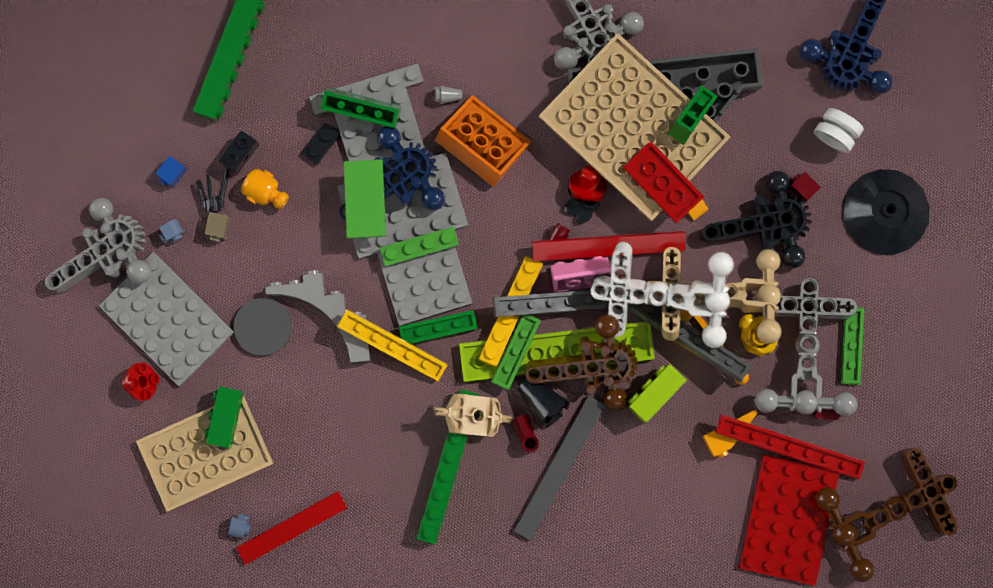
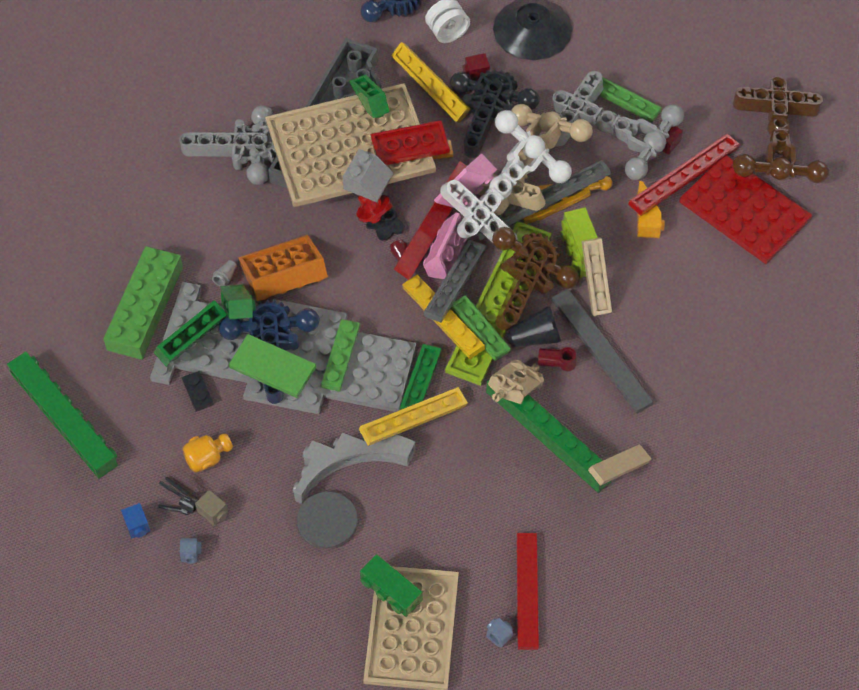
camera: 60 degrees left, 25 degrees down
(137, 270) = (173, 579): light grey piece -> none
(140, 381) = (309, 647): red plate -> none
(167, 321) = (266, 598): light grey plate -> none
(239, 152) = (159, 455): black brick -> none
(376, 44) = (143, 303): none -> bright green brick
(415, 128) = (237, 301): none -> green brick
(443, 547) = (619, 464): none -> tan tile
(601, 167) = (366, 176): none -> light grey slope
(621, 428) = (596, 276): none -> tan plate
(653, 258) = (472, 177): none -> bright pink slope
(749, 336) = (577, 154): yellow piece -> none
(761, 153) = (430, 82): none -> yellow plate

